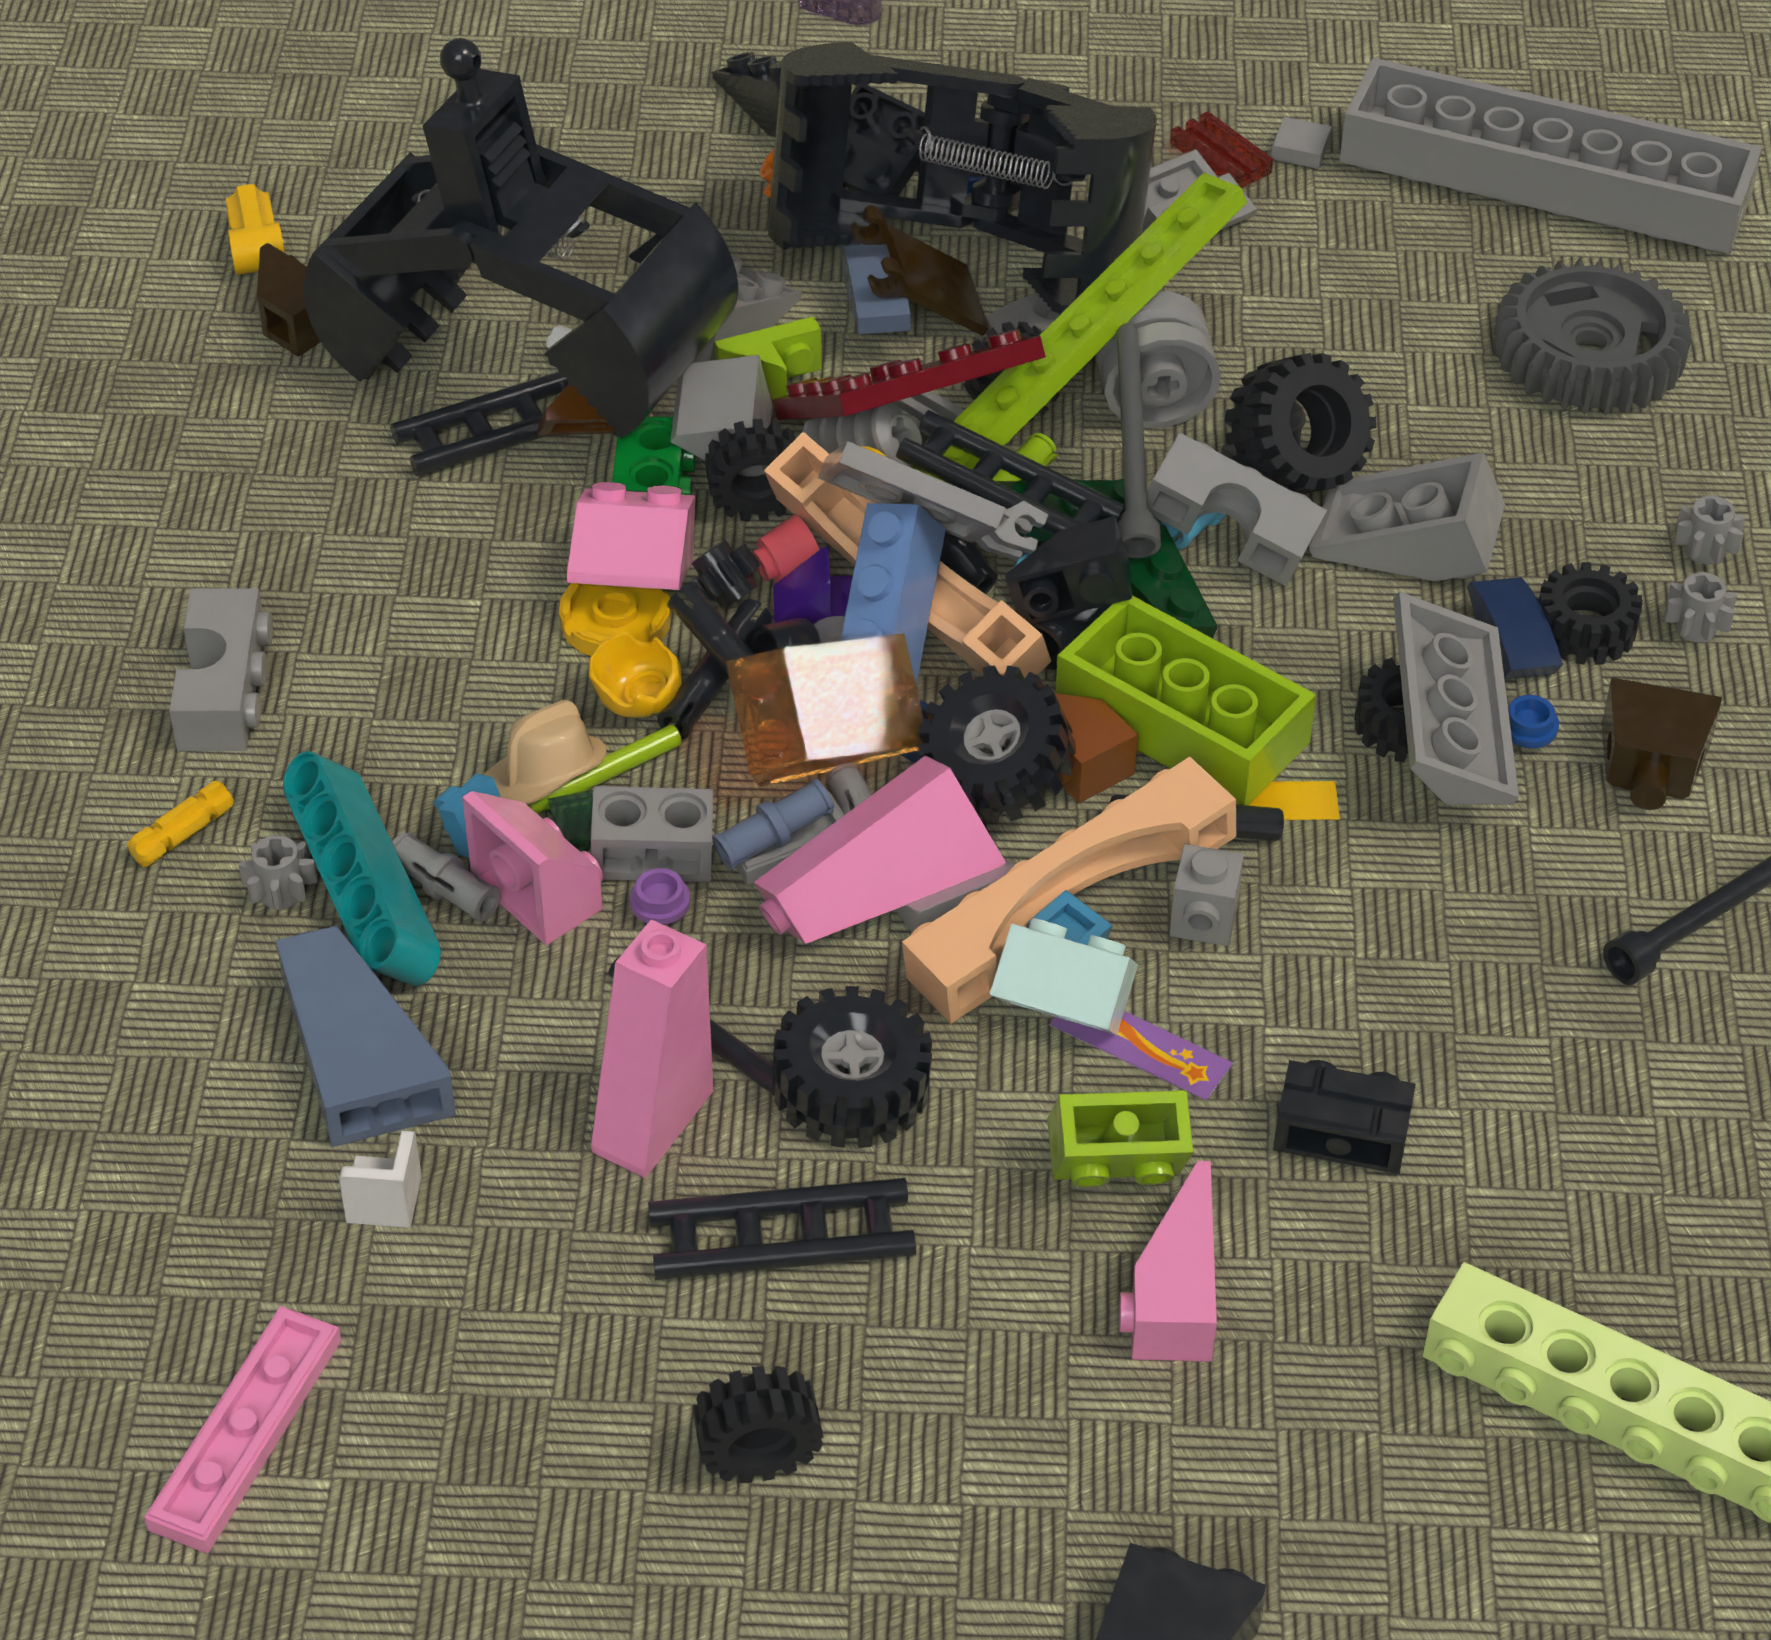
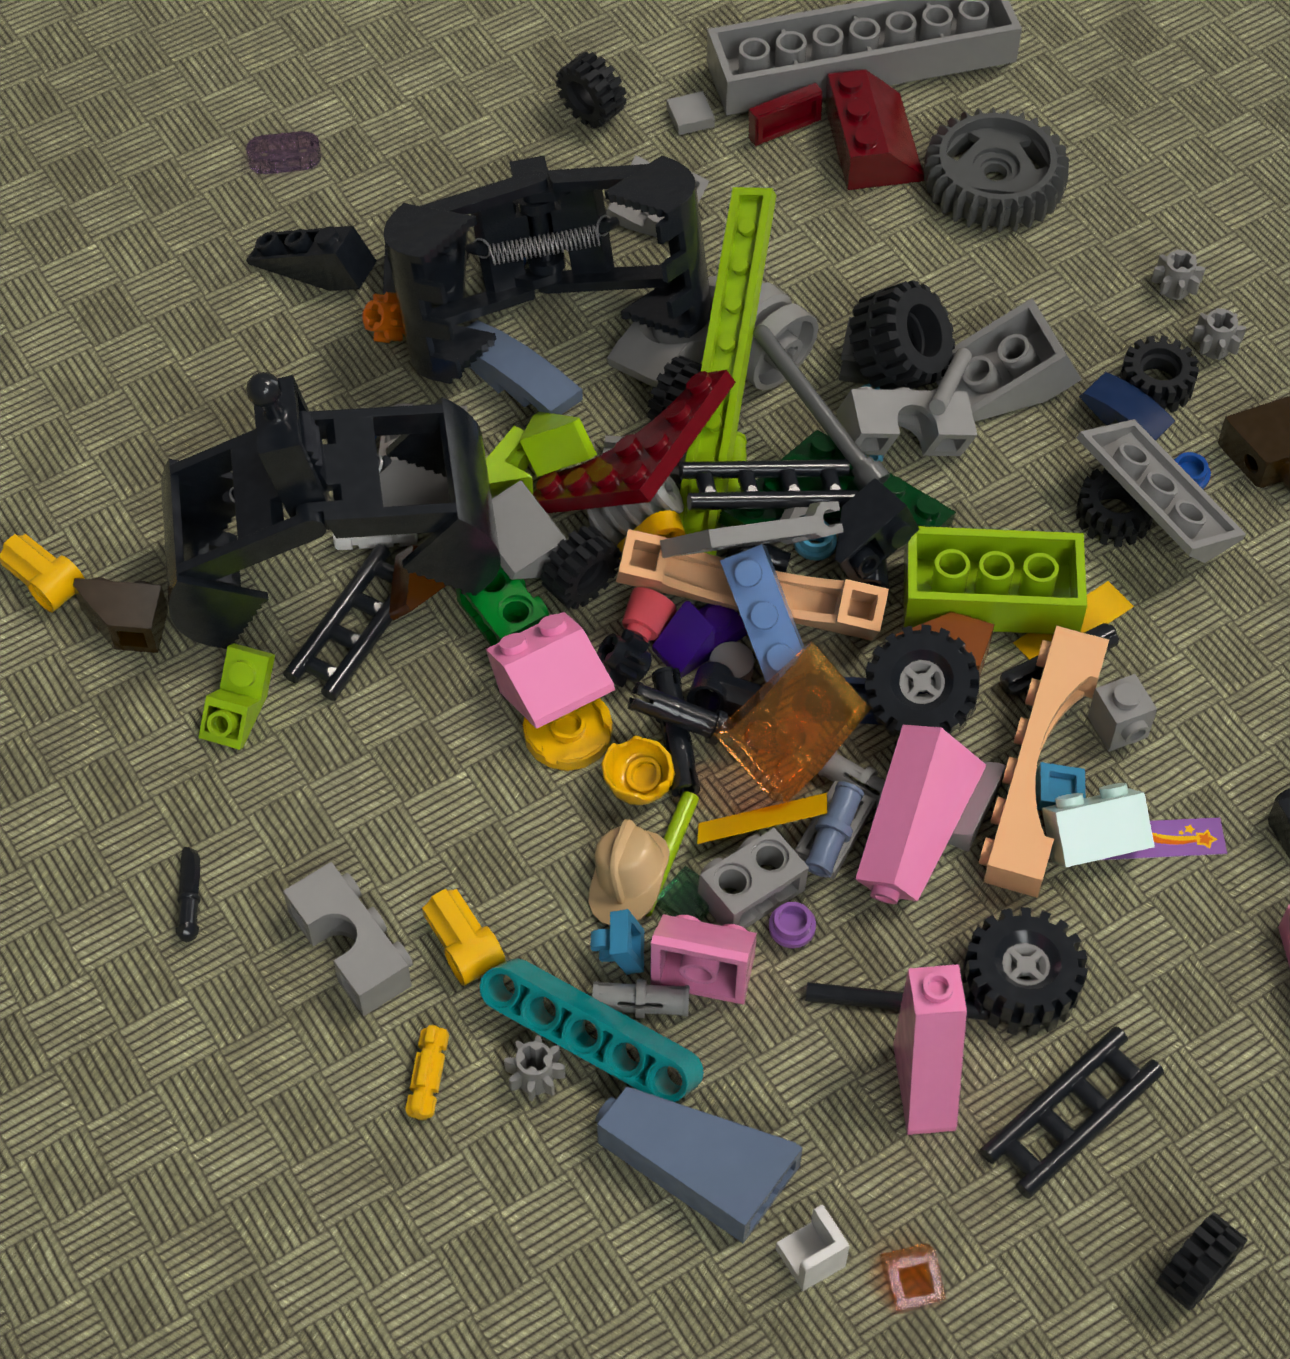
camera: 35 degrees left, 10 degrees up
(115, 565) = (188, 895): none -> black piece
(310, 435) = (242, 693): none -> lime slope
(327, 719) = (466, 944): none -> yellow piece
(462, 1273) = (913, 1276): none -> clear orange slope
(717, 782) = (762, 818): none -> yellow sticker
(830, 348) = (555, 442): none -> lime slope
(921, 273) = (556, 347): dark brown flag -> none
(1120, 1137) = (1224, 917): lime brick -> none
(1200, 66) = (591, 89): none -> black tyre
(1226, 147) = (646, 140): clear red tile -> none
(1311, 487) = (950, 381): none -> light grey bar
(1400, 183) = (785, 114): none -> dark red tile
(1483, 237) = (870, 131): none -> dark red slope

